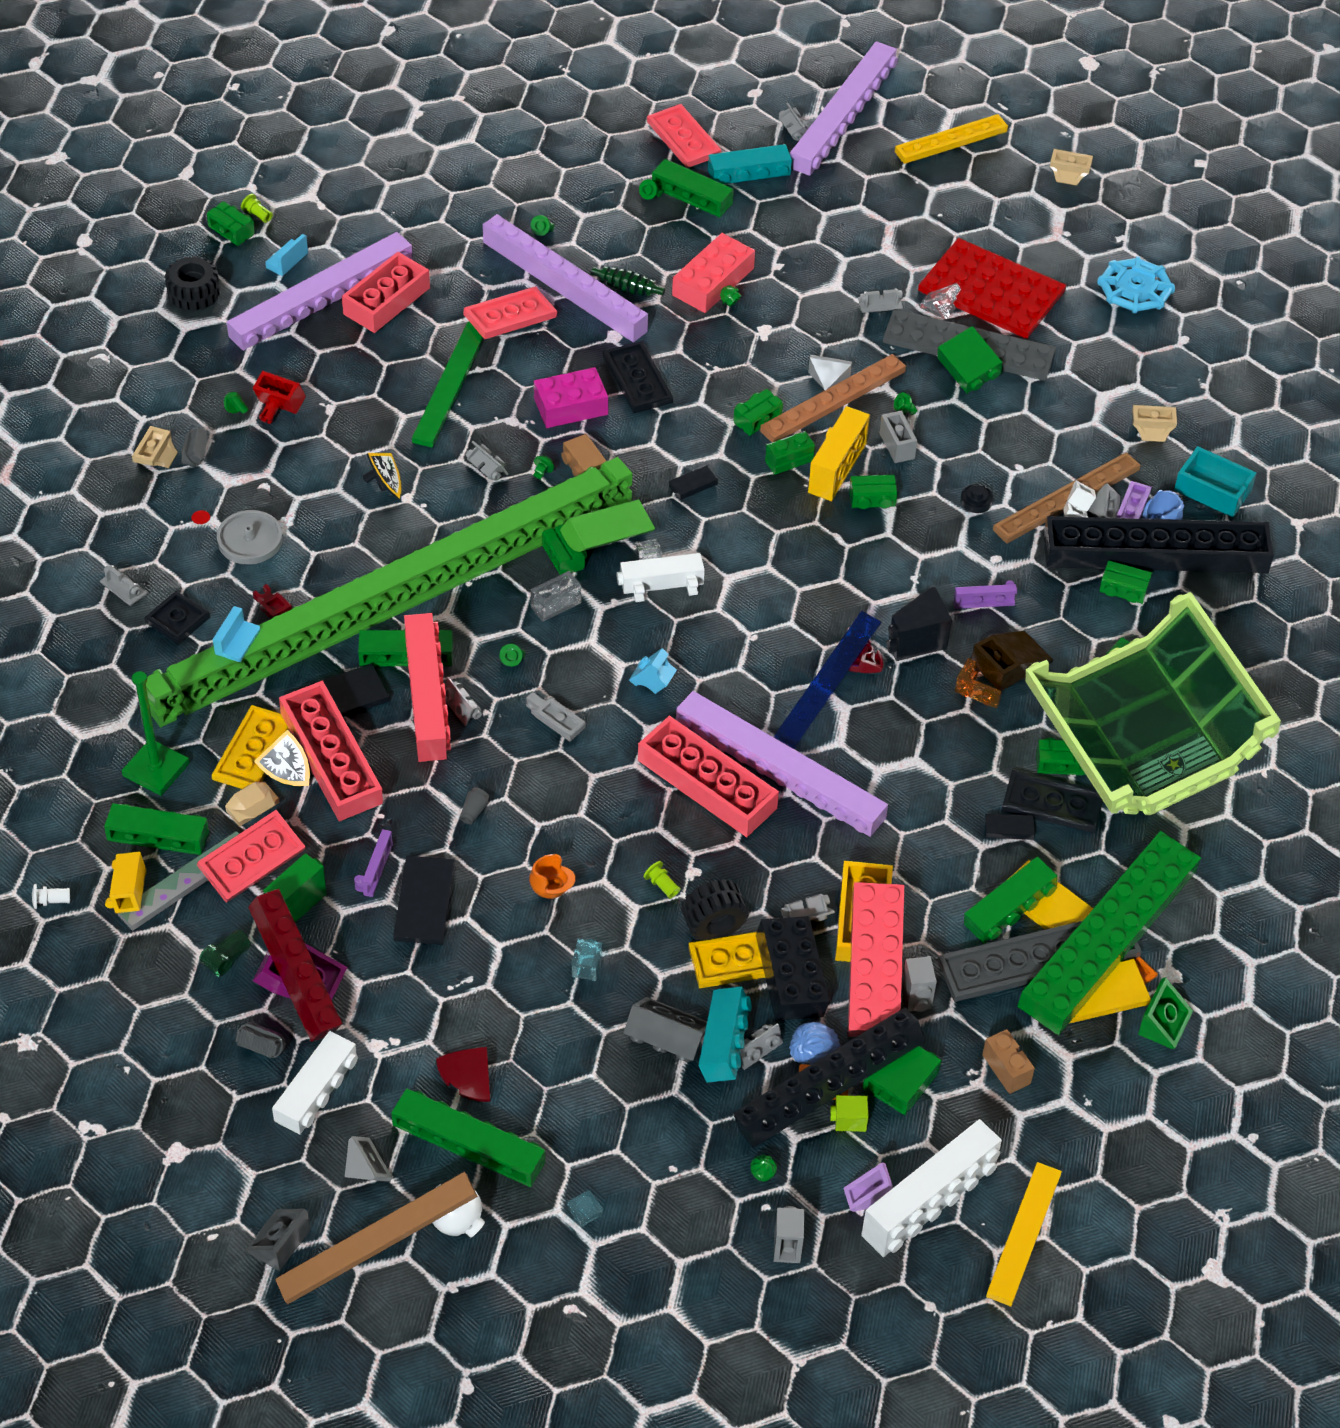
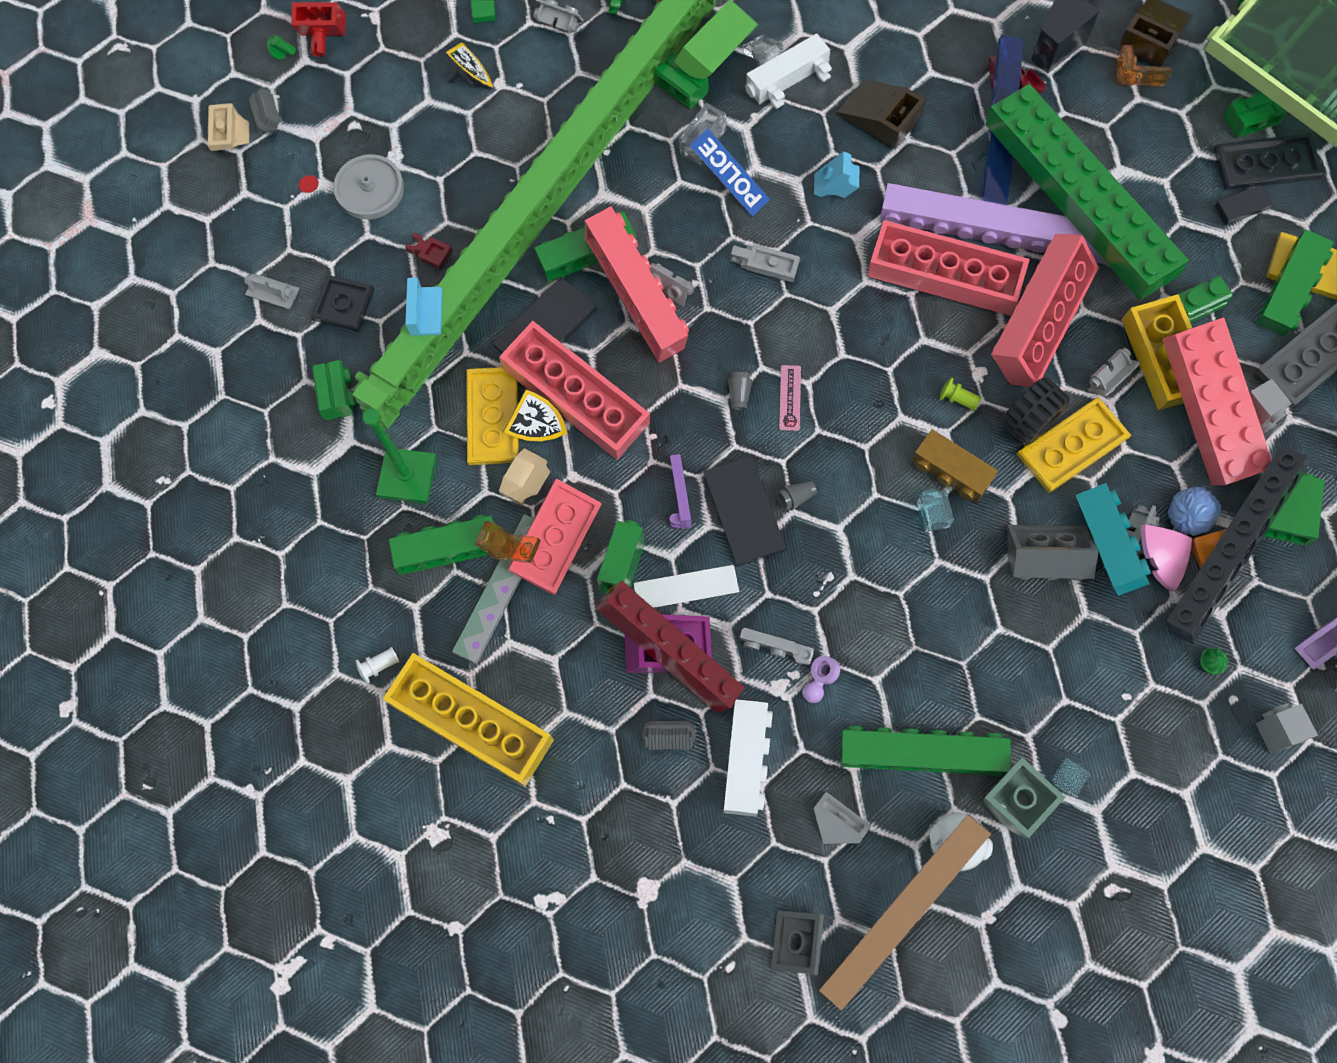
camera: 15 degrees left, 20 degrees up
(101, 963) = (469, 719): none -> yellow brick
(122, 687) = (333, 390): none -> green brick
(127, 883) = (448, 619): yellow brick -> none
(201, 839) = (506, 546): none -> clear orange bracket
(221, 956) = (581, 659): clear green piece -> none
(344, 940) = (688, 586): none -> white sticker
(389, 1008) = (778, 646): none -> light grey hinge
(419, 1045) = (814, 691): none -> lavender plate
(467, 1072) = (884, 681): dark red brick -> none
(473, 902) = (795, 494): none -> dark grey cone
(511, 654) = (690, 212): green plate -> none
(515, 830) = (790, 398): none -> clear pink sticker
(527, 1196) = (1023, 799): none -> sand green brick
(550, 878) = (859, 439): orange helmet -> none
(561, 634) = (729, 172): none -> blue sticker
(624, 932) = (954, 466): none -> pearl gold brick
(727, 637) = (883, 110): none -> dark brown slope
(768, 1064) = (1167, 553): none -> bright pink brick
(773, 835) = (1045, 310): none -> coral brick
(792, 968) = (1134, 439): black brick -> none
(850, 1113) = (1265, 569): lime brick -> none
(858, 757) = (1086, 192): none -> green brick
(920, 884) = (1205, 298): none -> green brick

